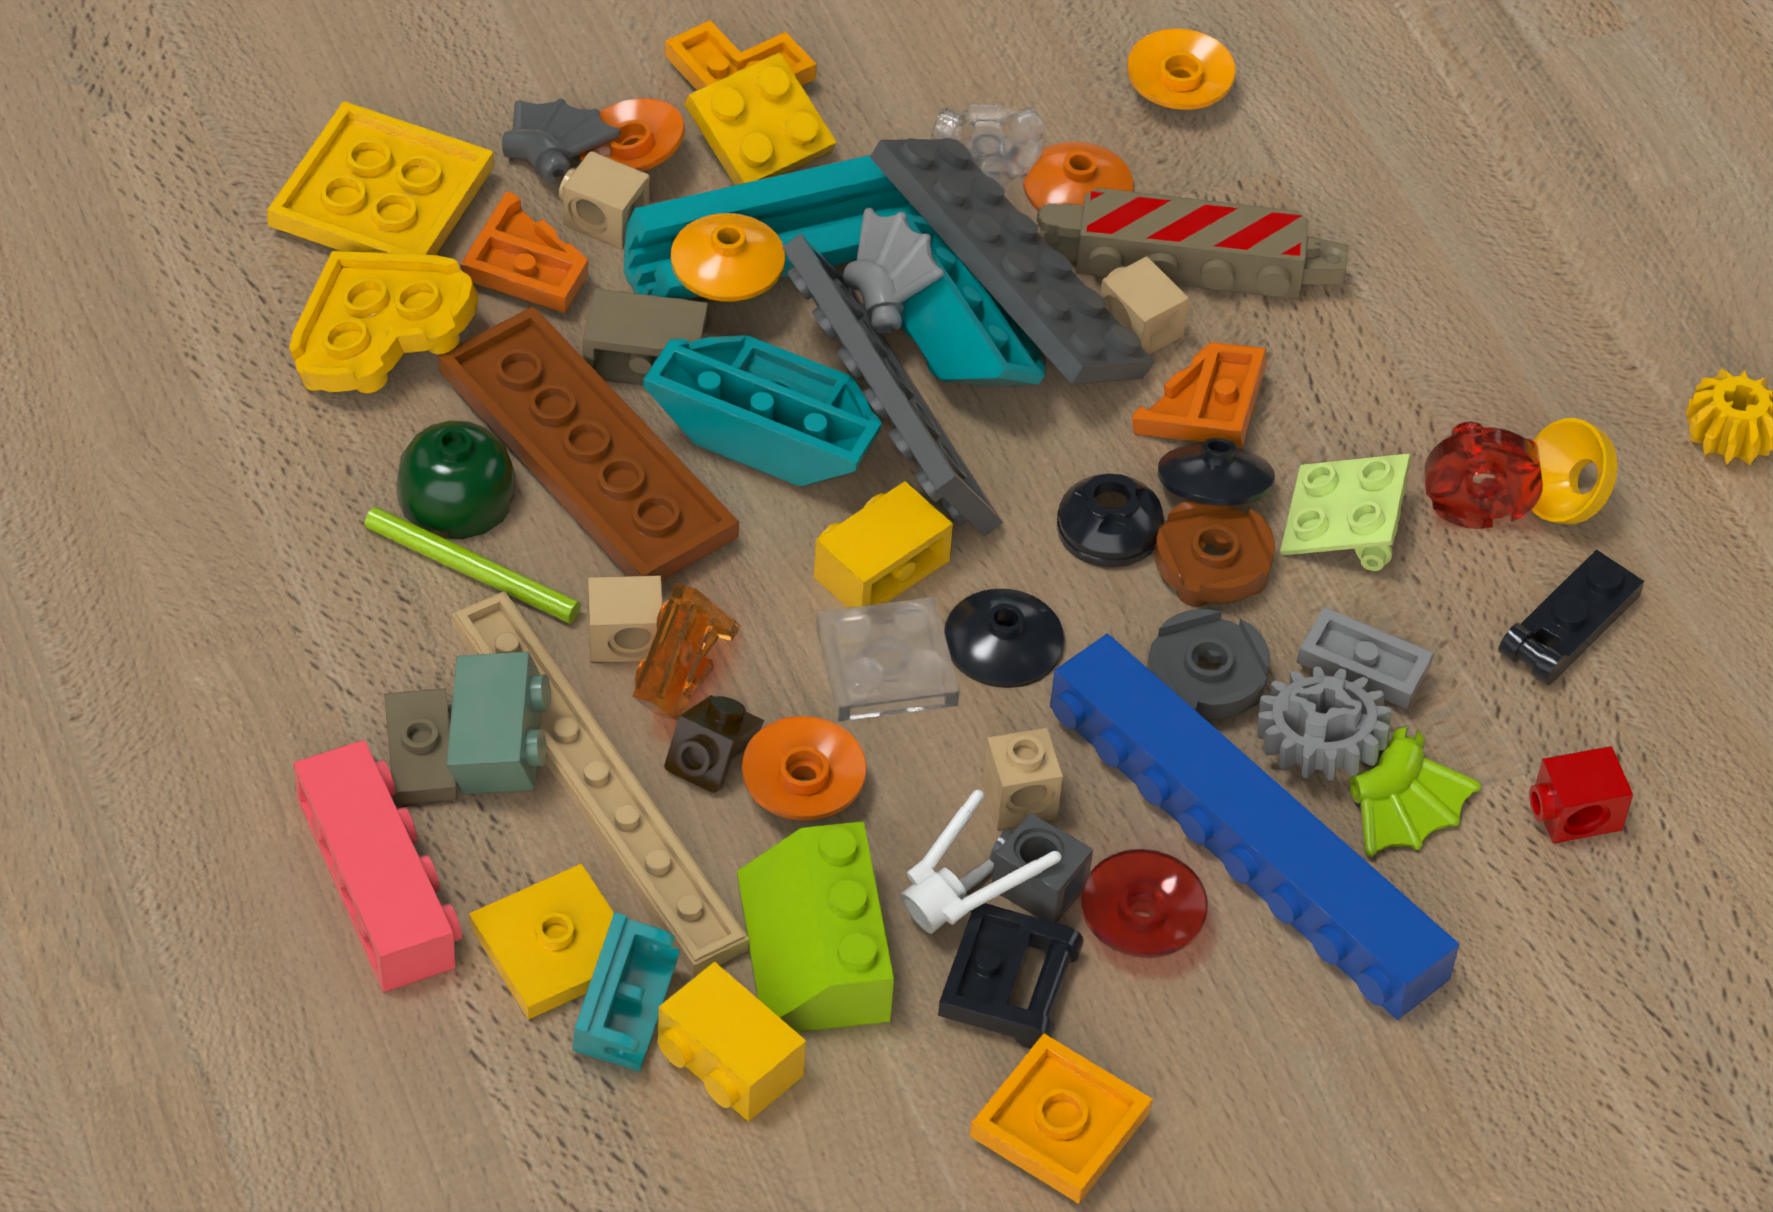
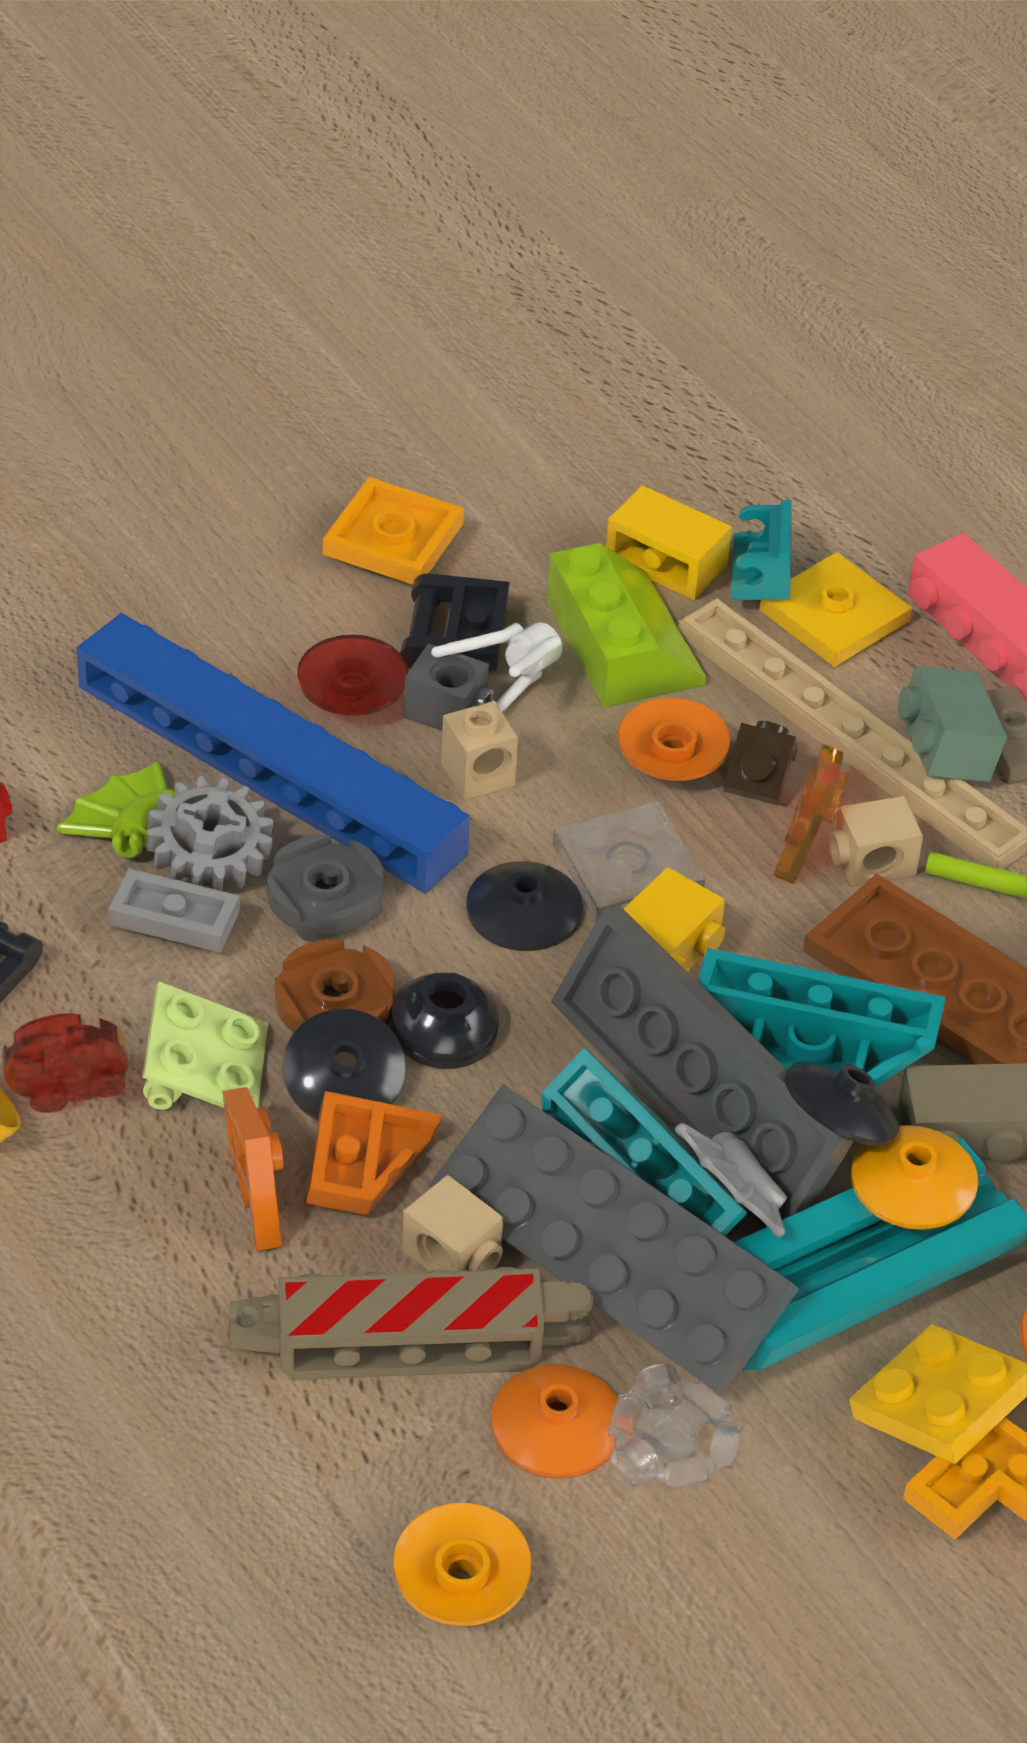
camera: 170 degrees right, 5 degrees down
(792, 300) = (842, 1101): none -> black dish
(1315, 384) = (255, 1157): none -> orange wing

